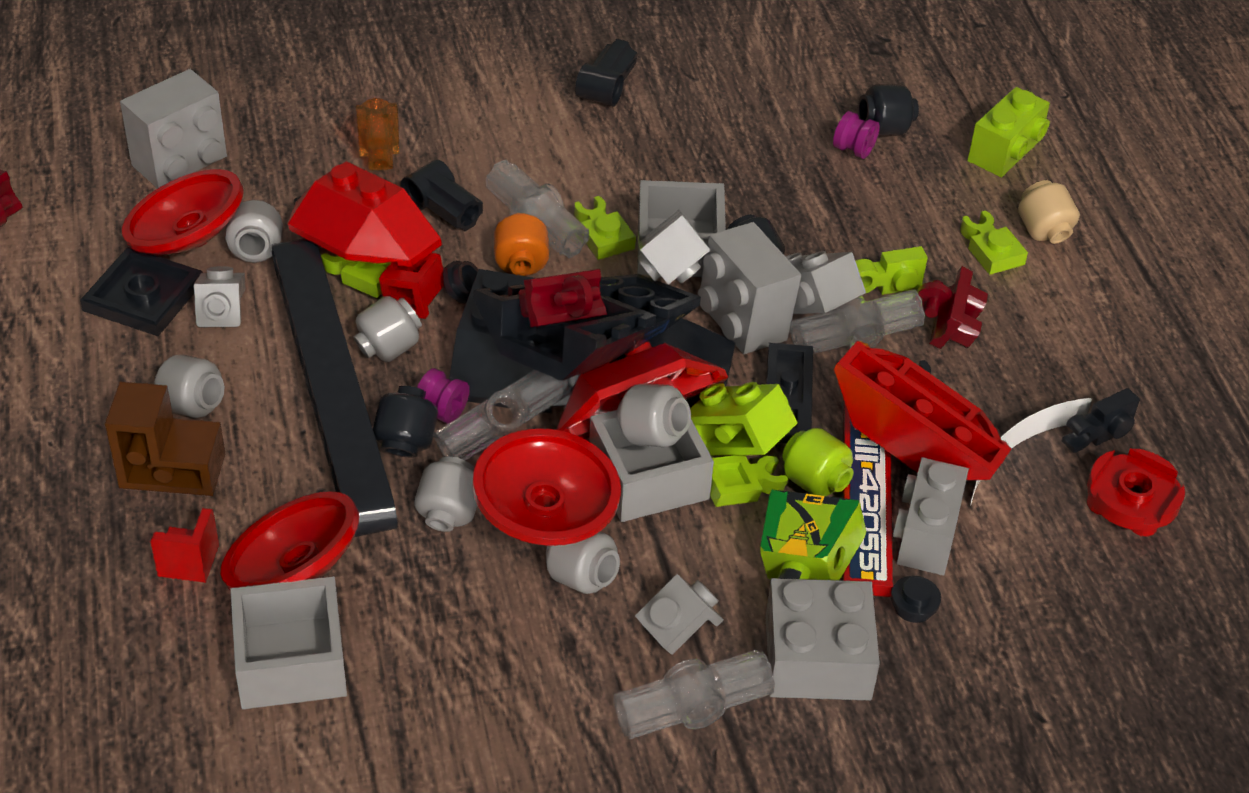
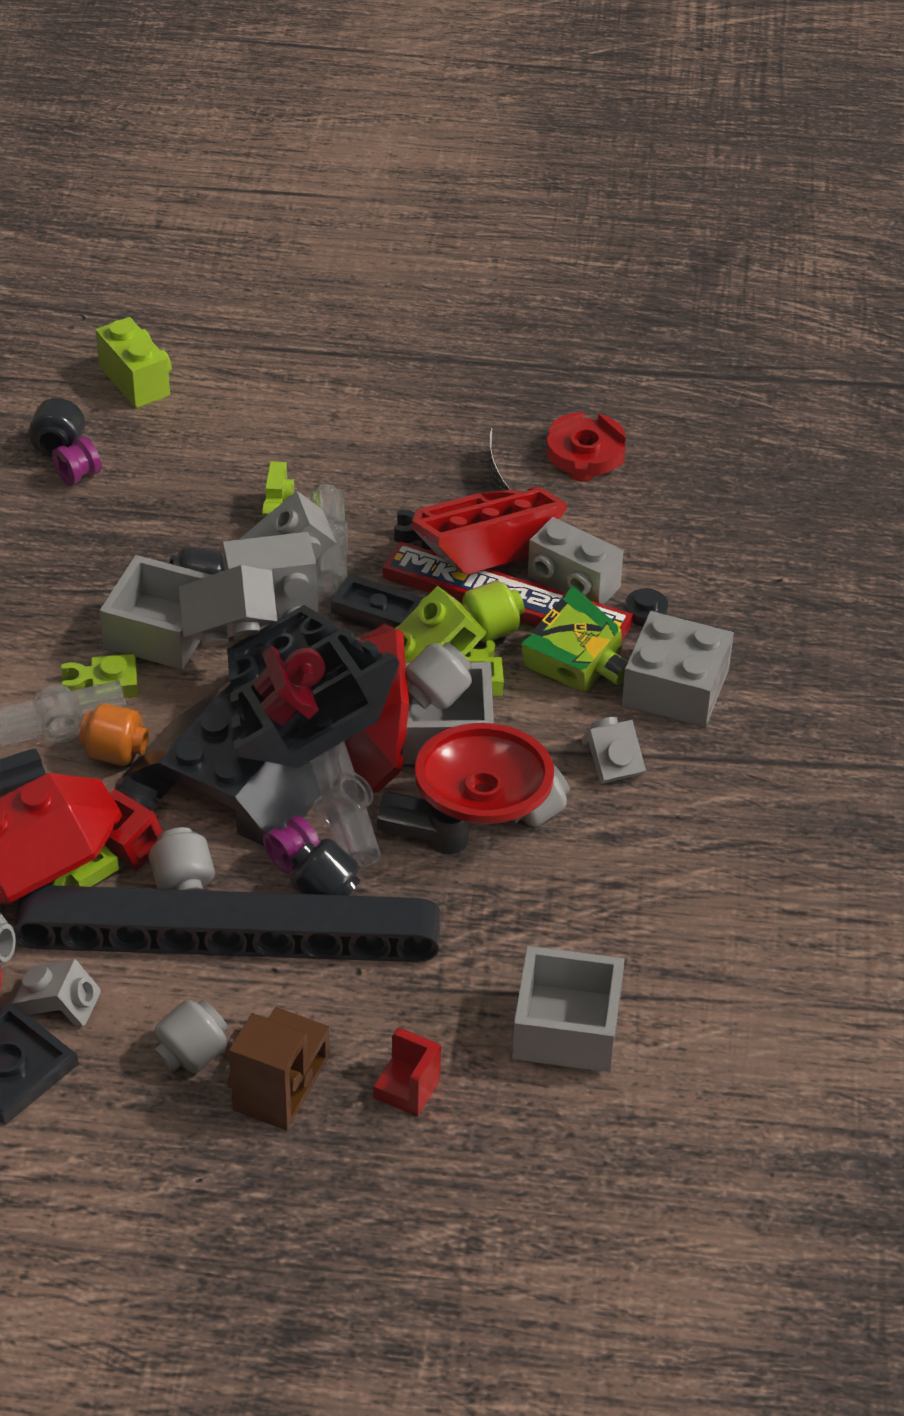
camera: 70 degrees left, 0 degrees up
(293, 541) = (435, 967): red dish -> none
(446, 494) = (422, 866): light grey head -> none
(694, 694) = (702, 764): clear piece -> none
(953, 309) = (345, 473): dark red hips -> none
(993, 247) = (264, 427): lime plate -> none
(1048, 211) = (250, 376): tan head -> none
(1108, 419) = (511, 432): black plate -> none

